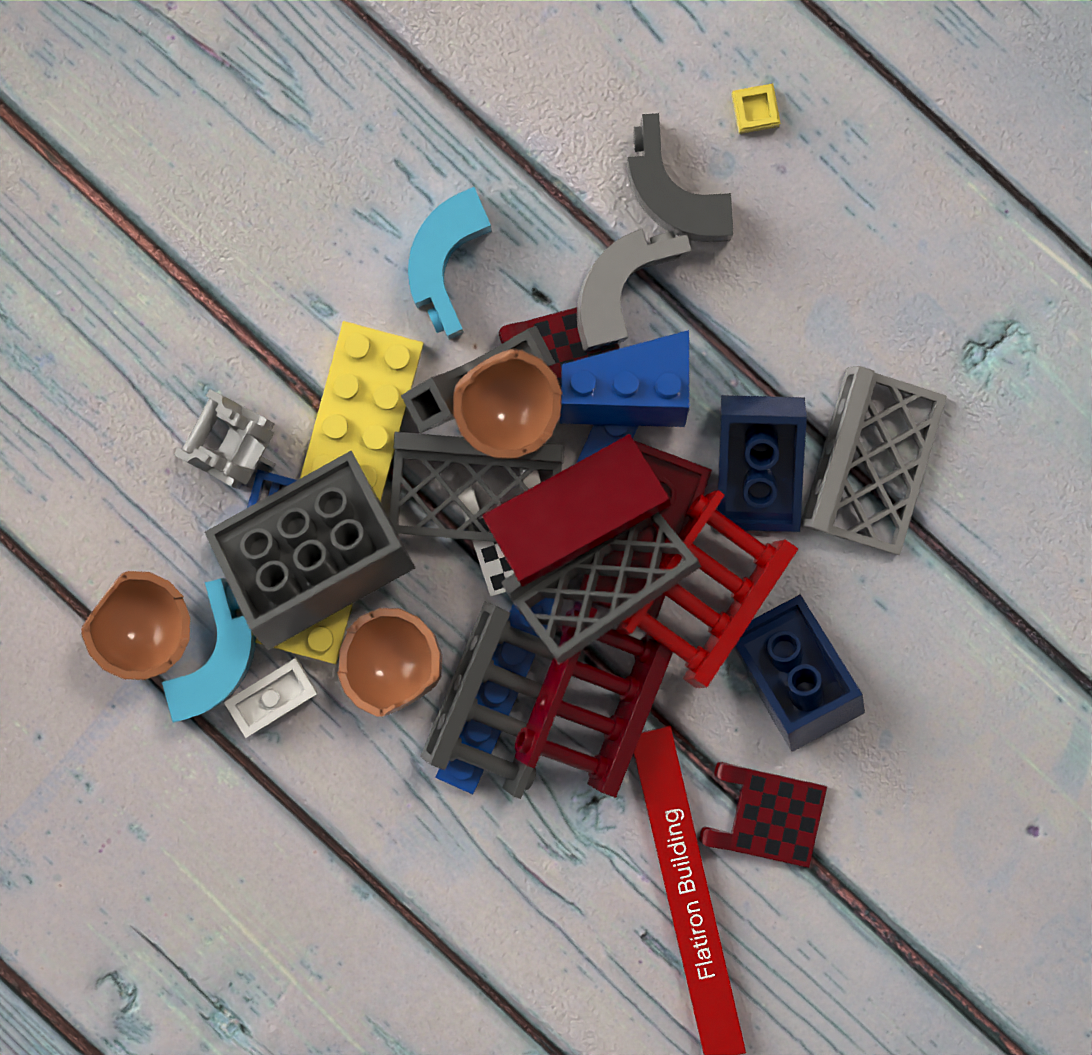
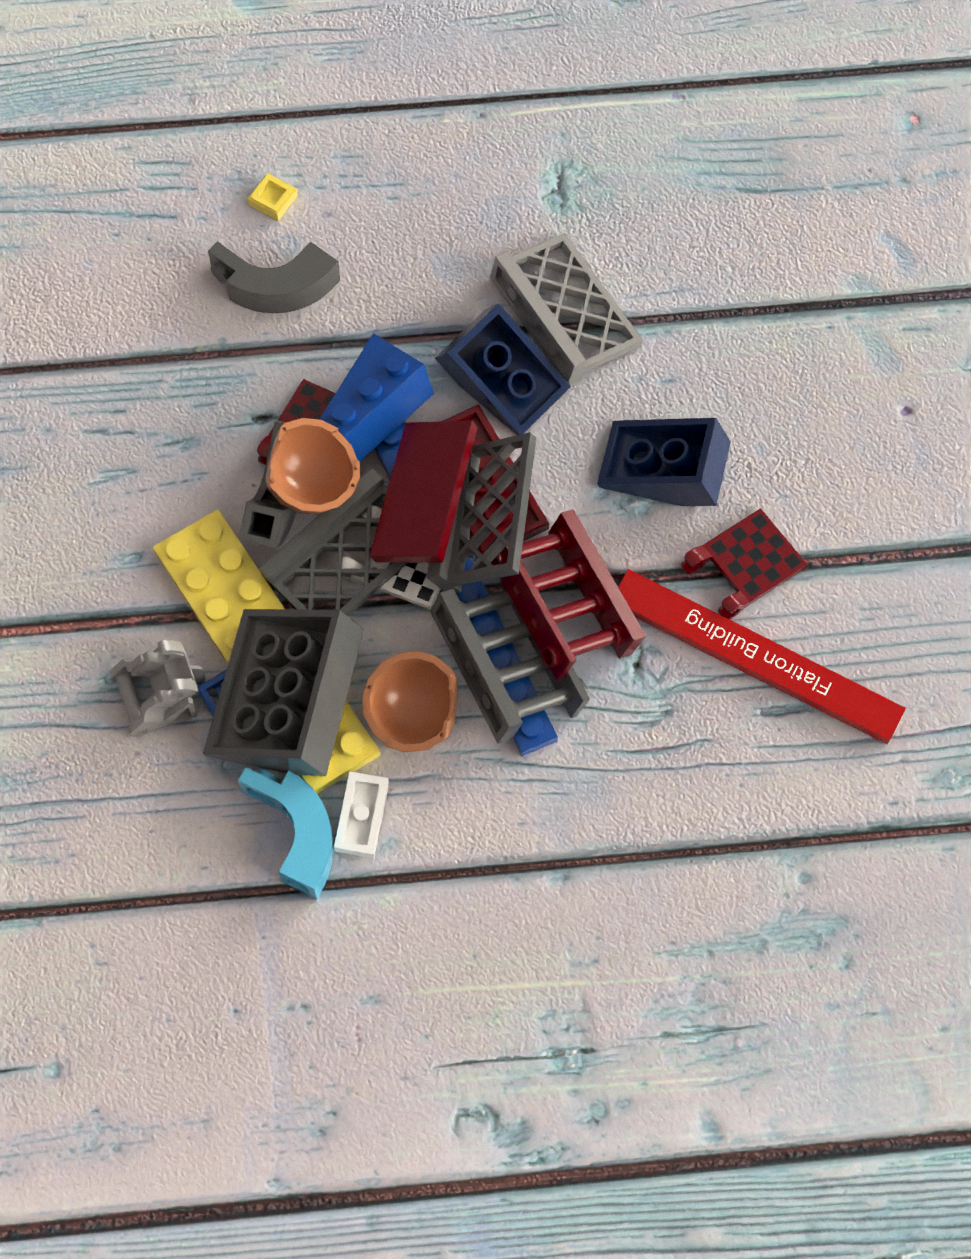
camera: 45 degrees left, 20 degrees down
(138, 627) = (223, 853): nougat cylinder -> none
(439, 236) = (160, 427): medium azure arch -> none
(599, 300) = (298, 373): light grey arch -> none
(747, 593) = (582, 442): red fence -> none

